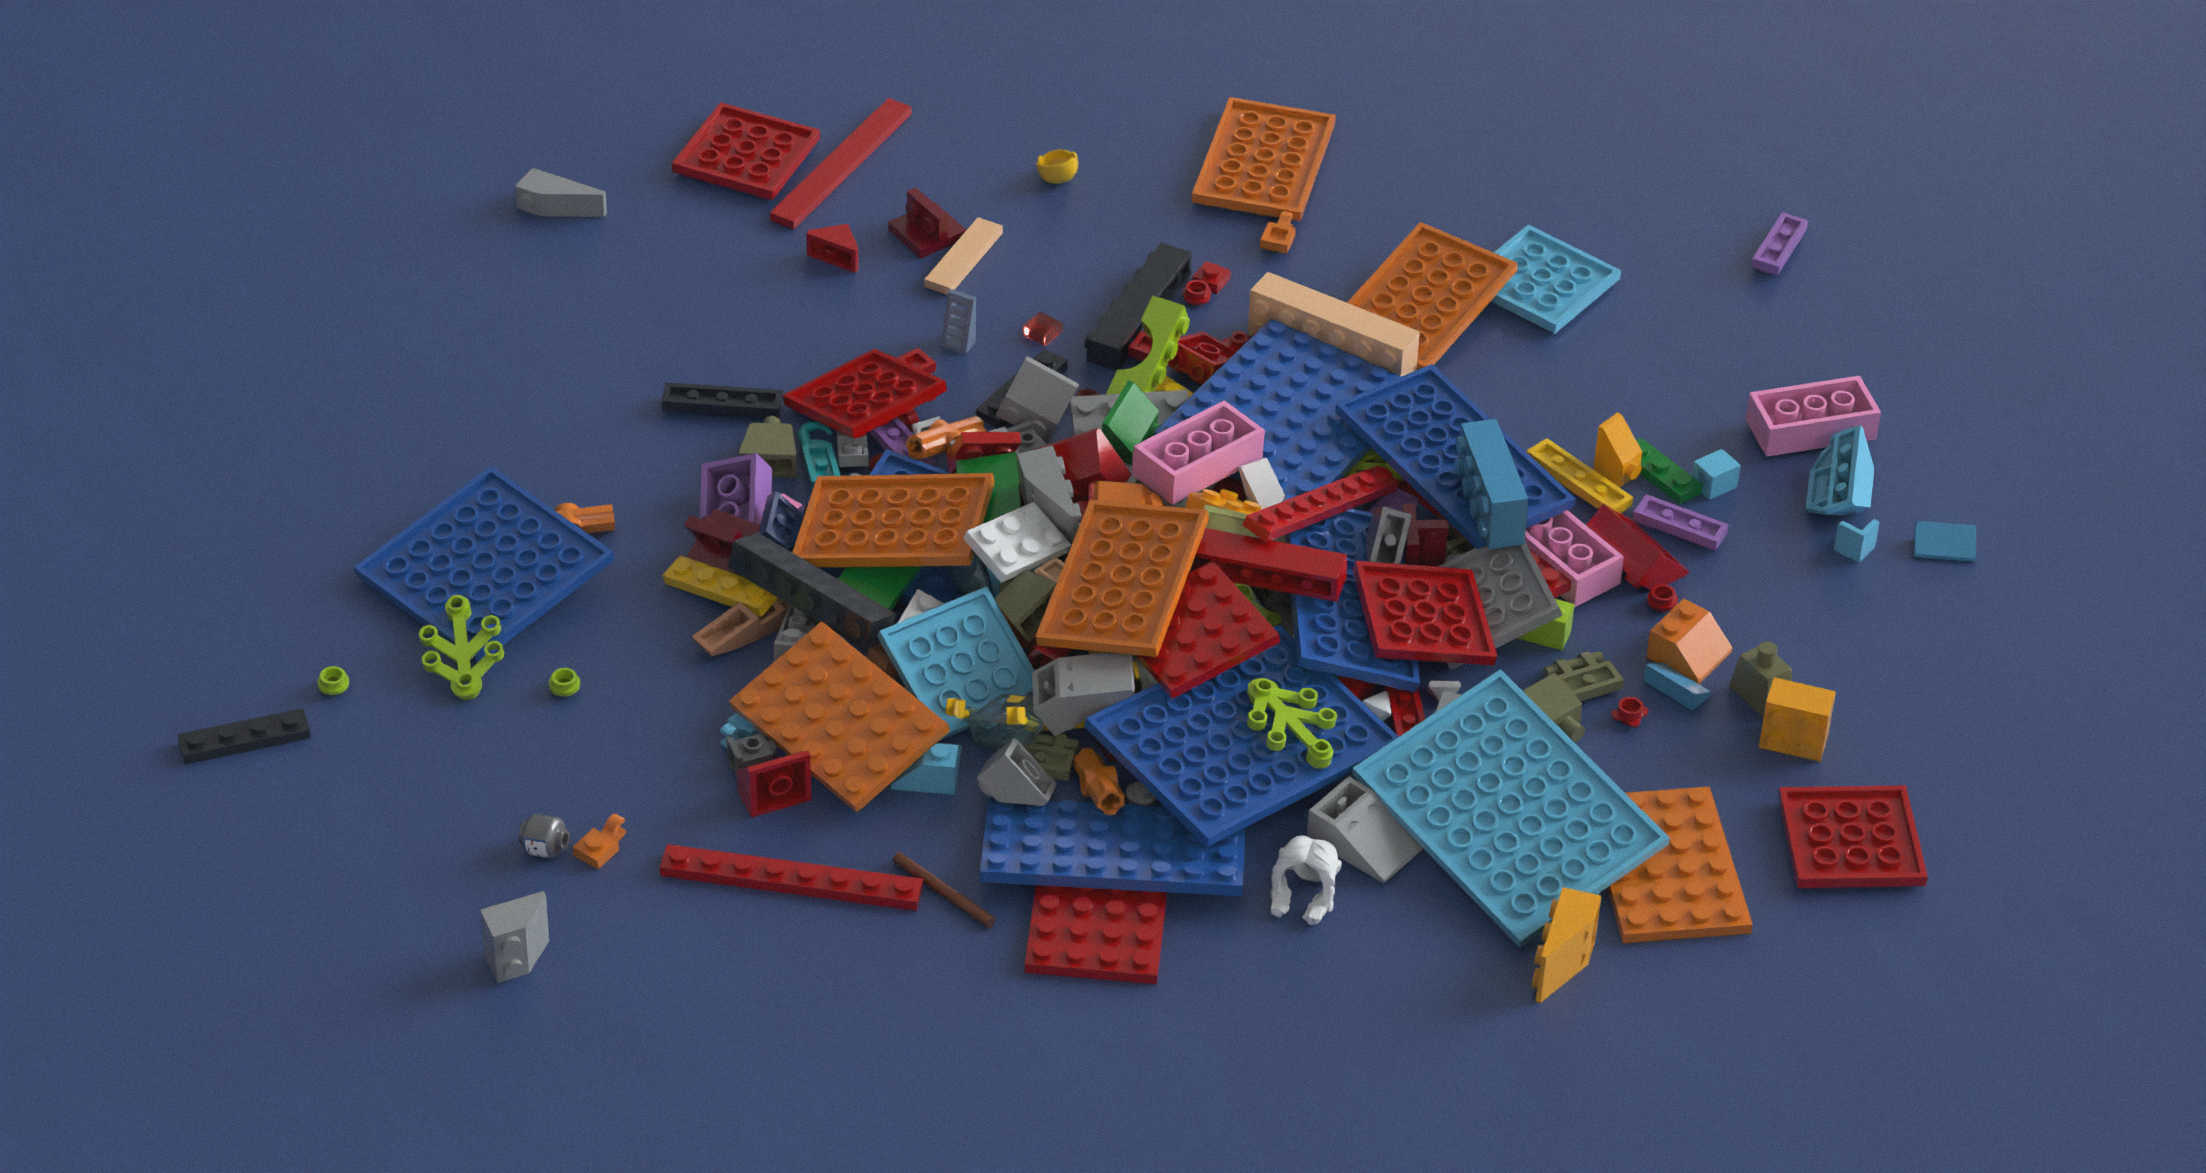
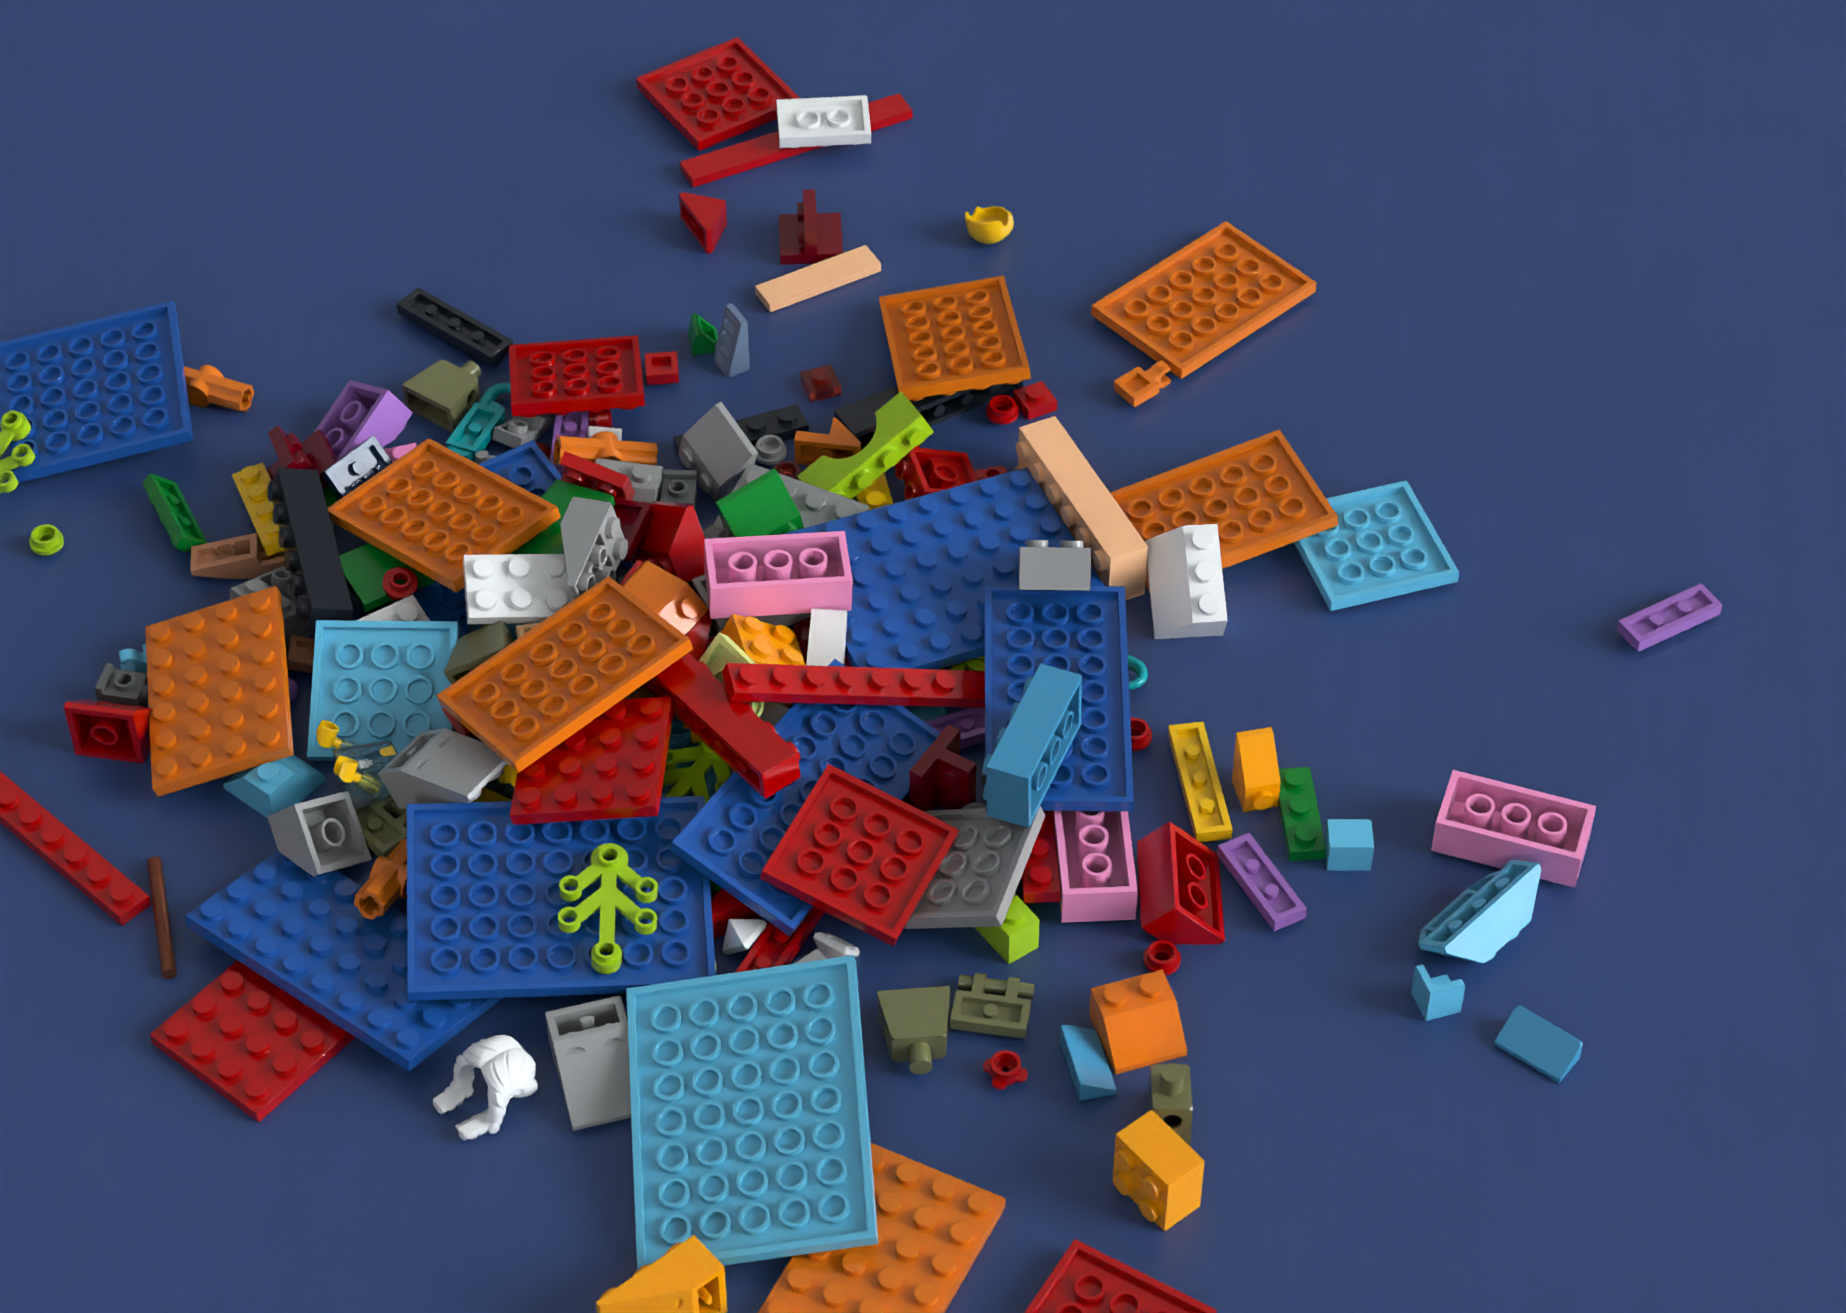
camera: 35 degrees right, 5 degrees up
(557, 196) = (505, 69): light grey slope -> none
(649, 621) = (174, 512): none -> green plate
(859, 138) = (823, 121): none -> white plate
(902, 585) = (396, 591): none -> red plate
(918, 332) = (701, 336): none -> green slope
(1101, 366) = (837, 444): none -> orange slope
(1125, 252) = (953, 338): none -> orange plate
(1378, 366) = (1054, 567): none -> light grey slope
(1387, 535) = (896, 755): flat silver slope -> none
(1458, 347) = (1186, 583): none -> white slope

